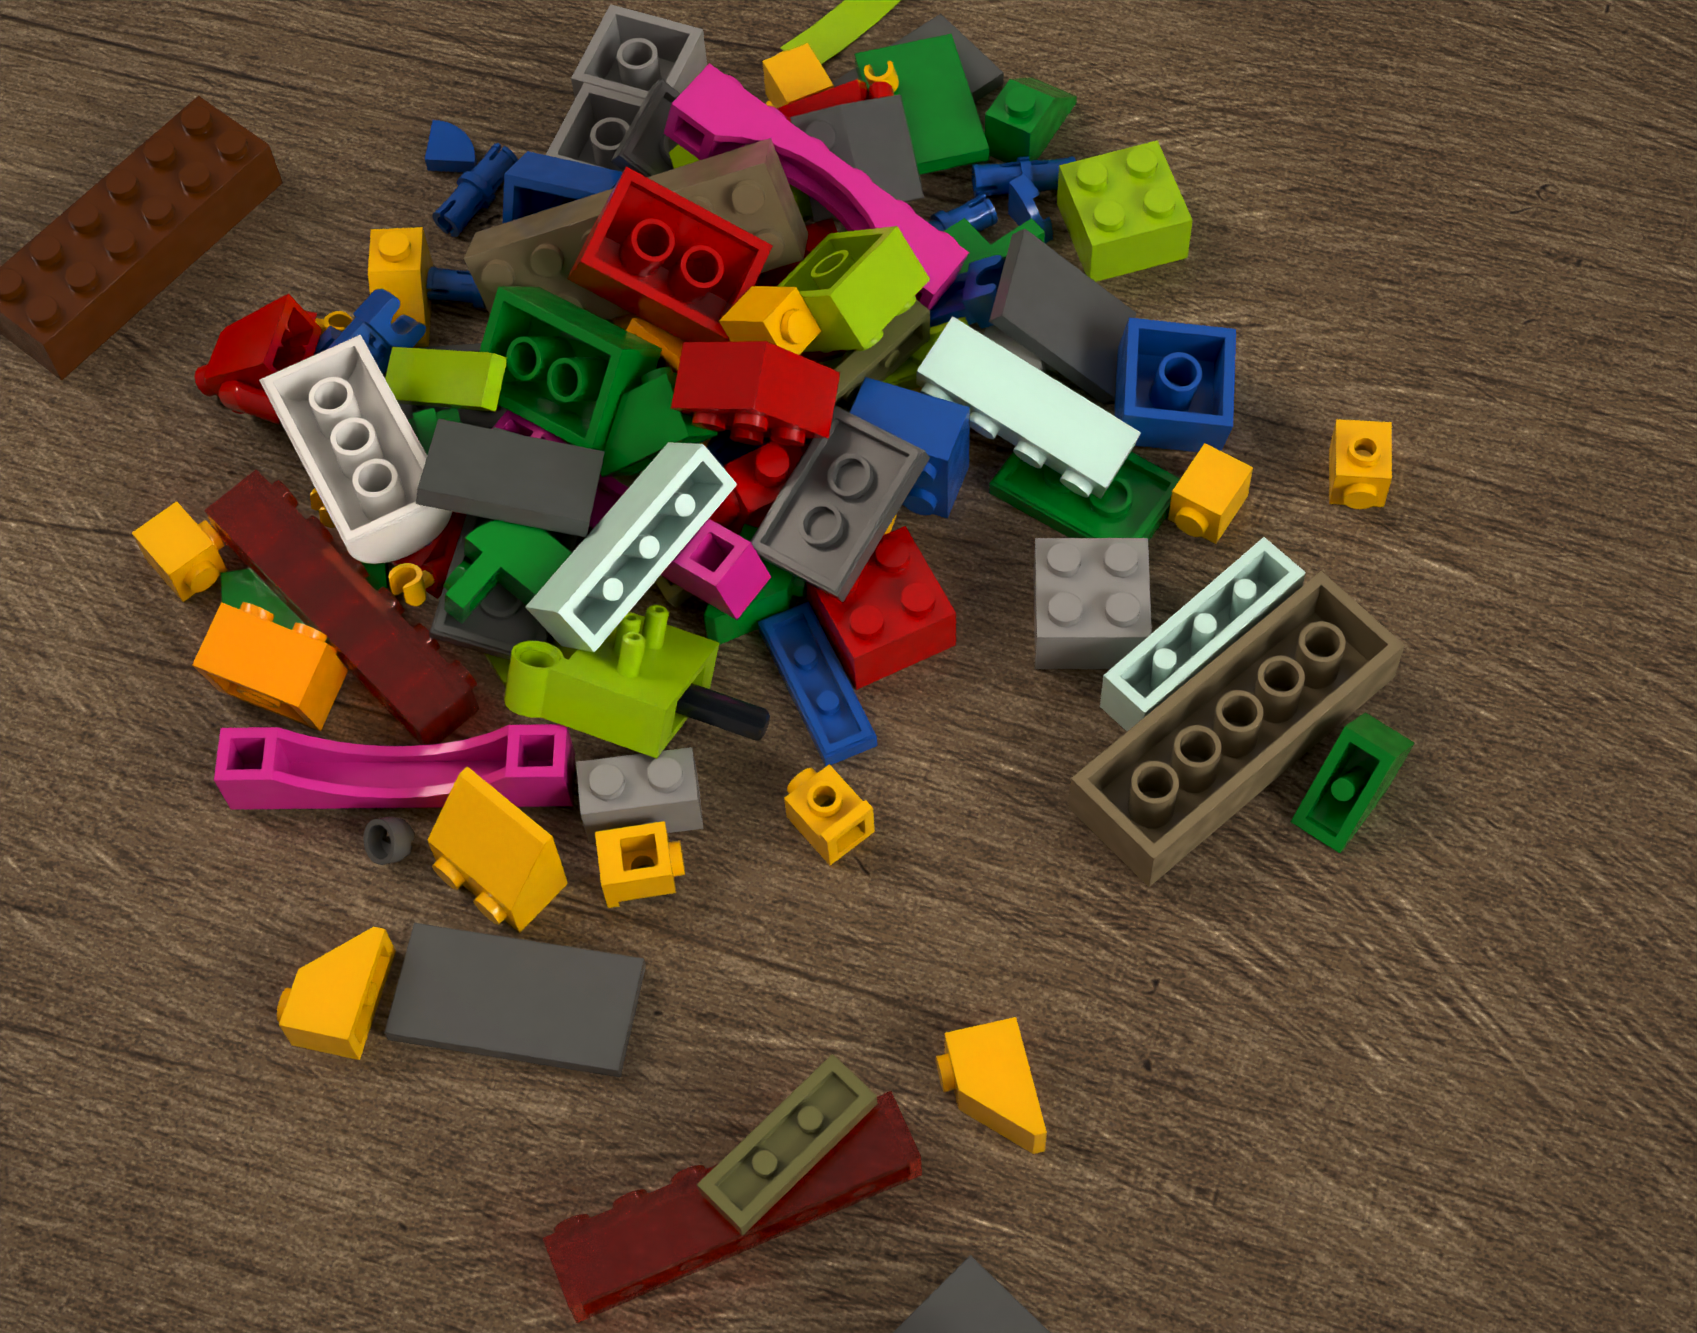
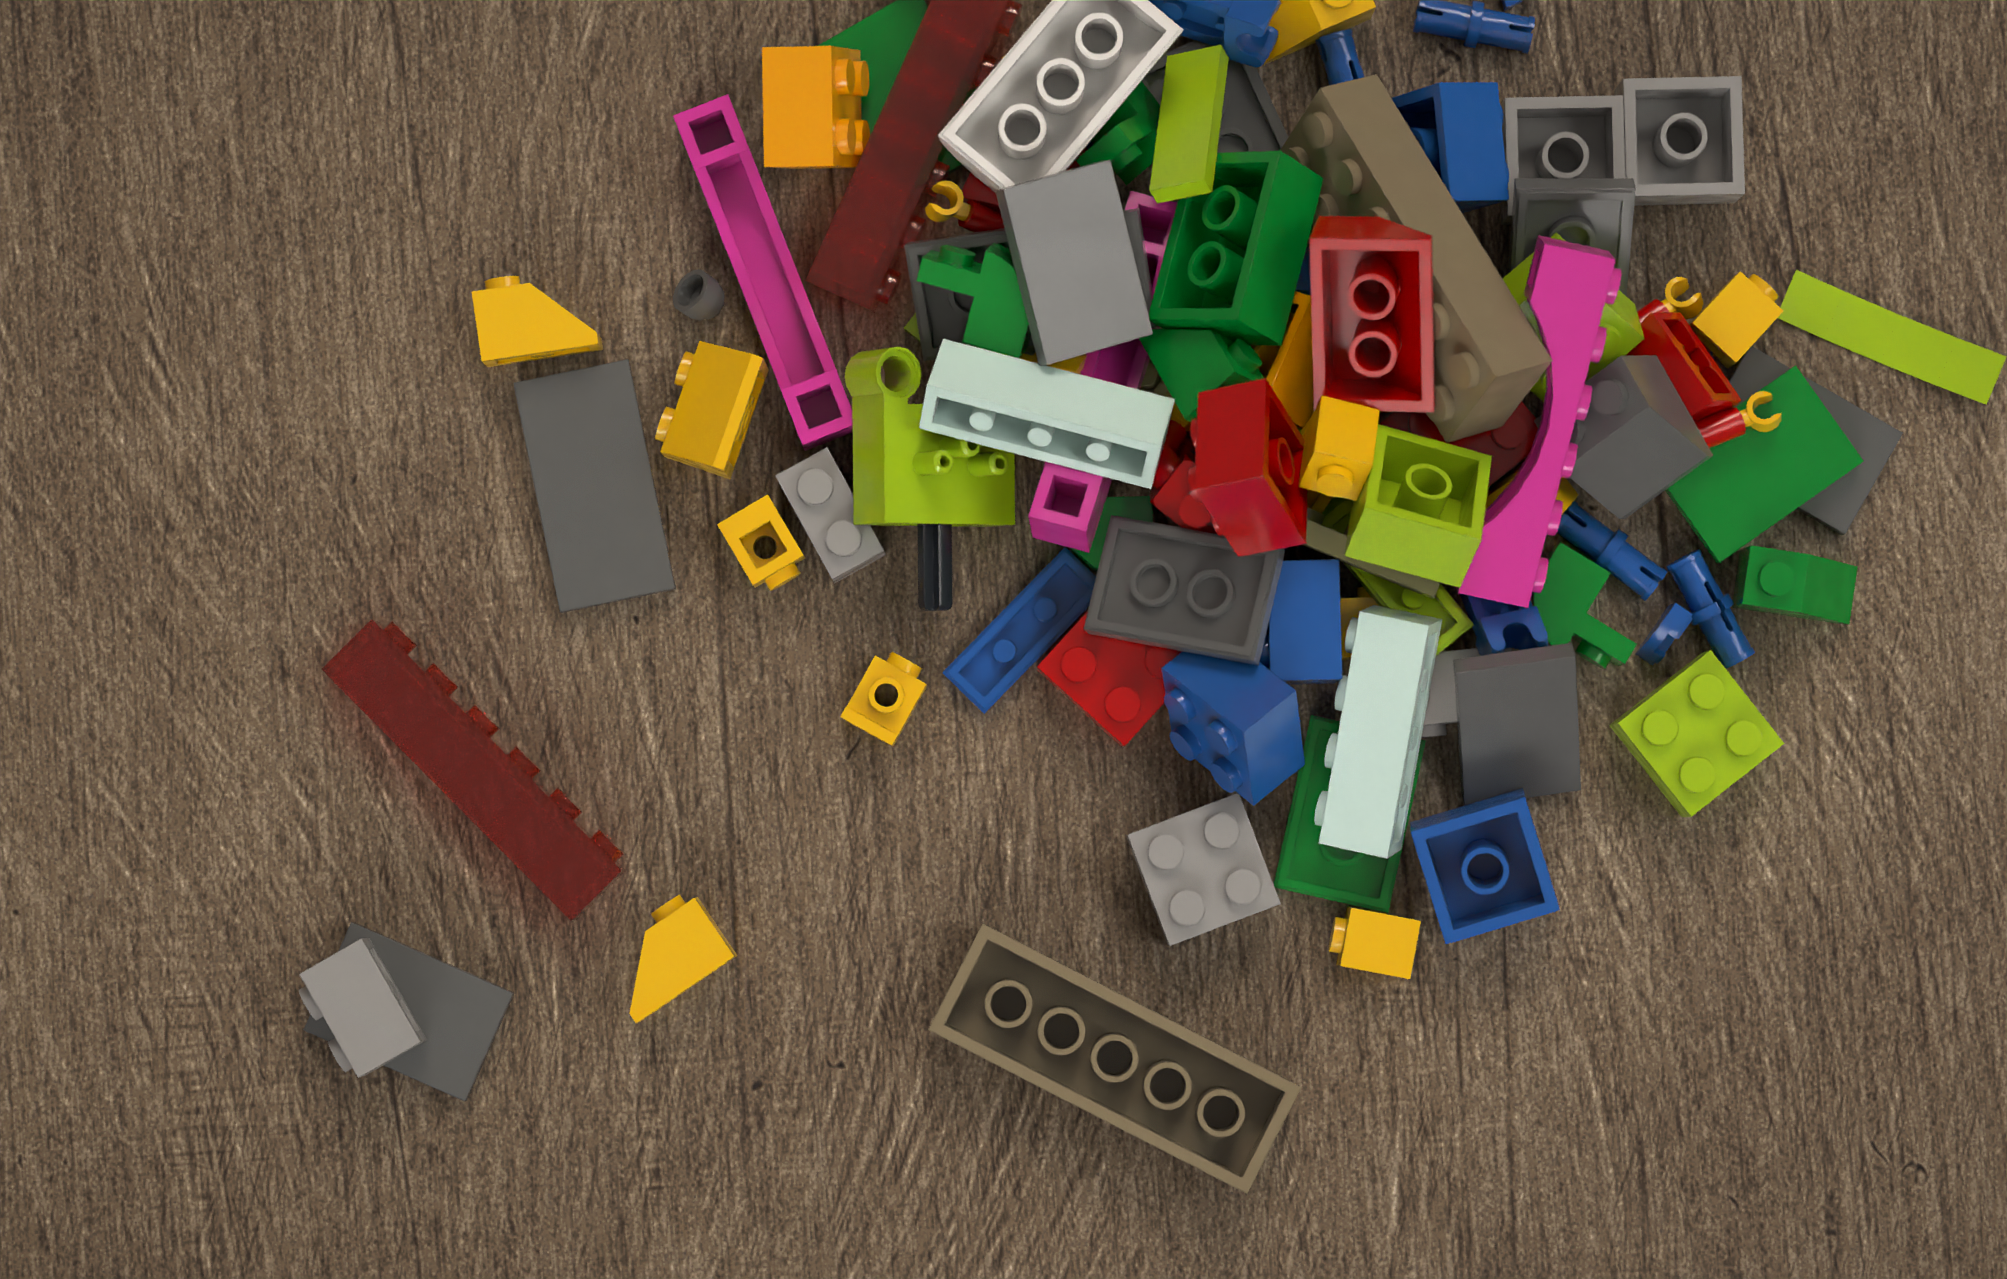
camera: 65 degrees right, 25 degrees up
(787, 1144) = (528, 802): olive plate -> none
(969, 512) = (1234, 722): none -> blue brick
(1199, 632) = (1198, 993): light aqua brick -> none
(1352, 781) = (1106, 1185): green slope -> none
(1360, 463) = (1469, 1082): yellow brick -> none

